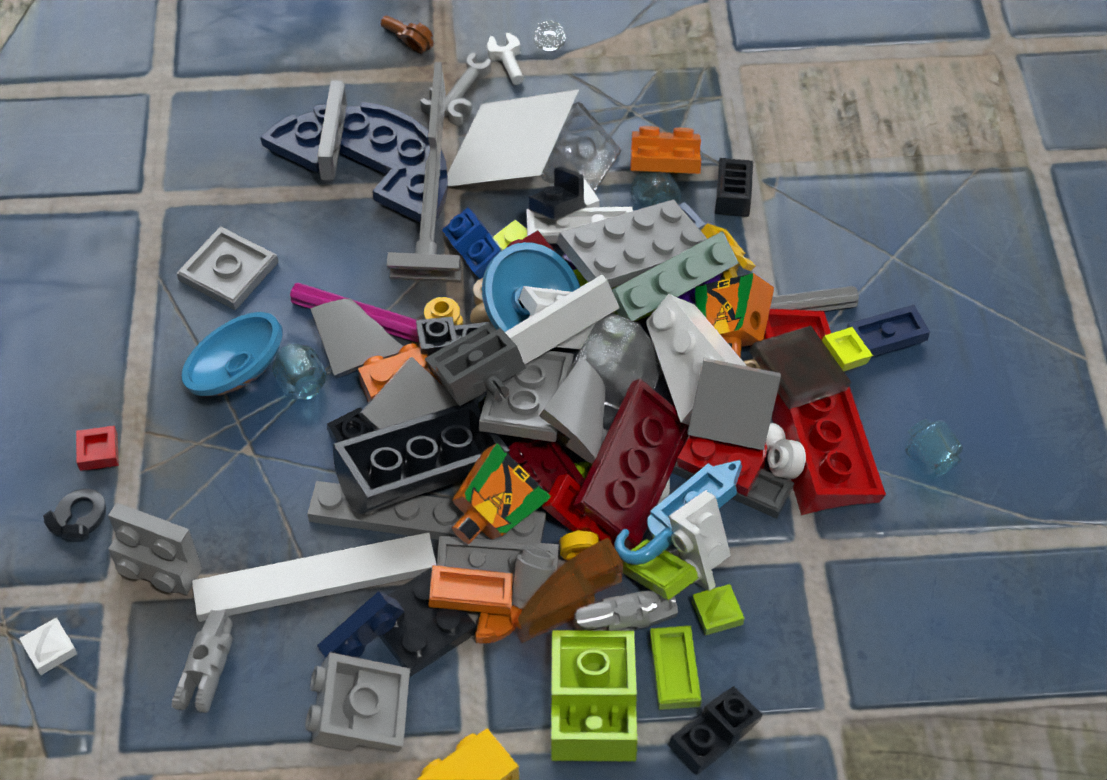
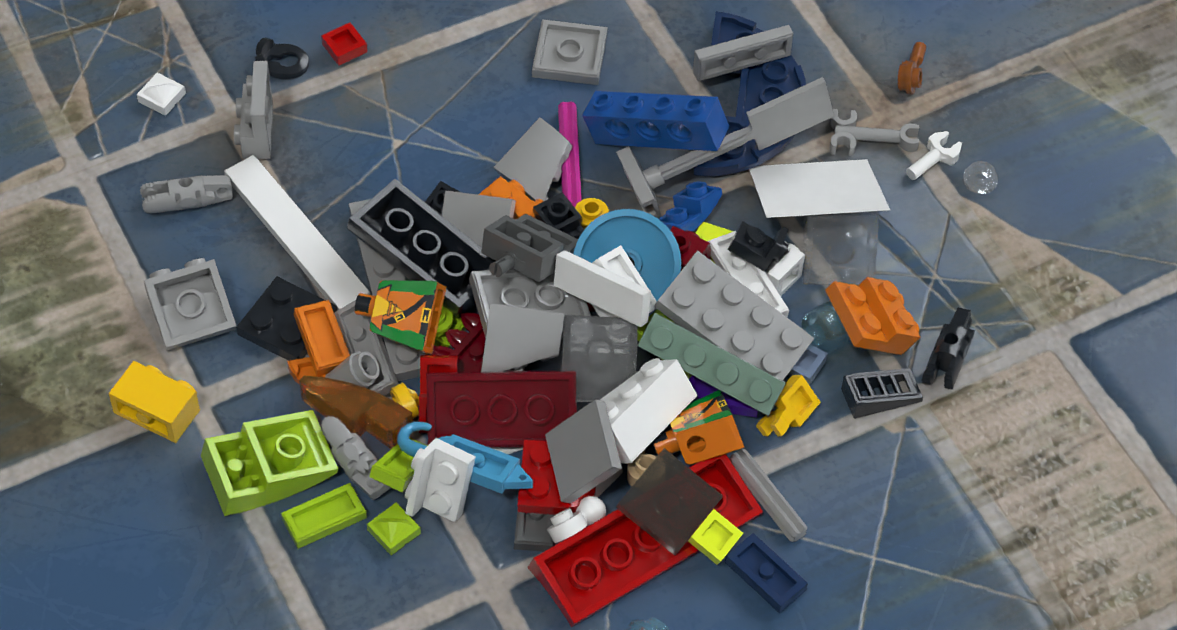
camera: 65 degrees right, 0 degrees up
(233, 355) = (468, 88): dark azure dish -> none
(299, 371) = (480, 140): clear light blue head -> none
(364, 625) = (250, 275): dark blue plate -> none
(375, 218) = (656, 120): none -> blue brick
(715, 730) = (273, 564): black slope -> none
(717, 121) = (950, 349): none -> black hinge

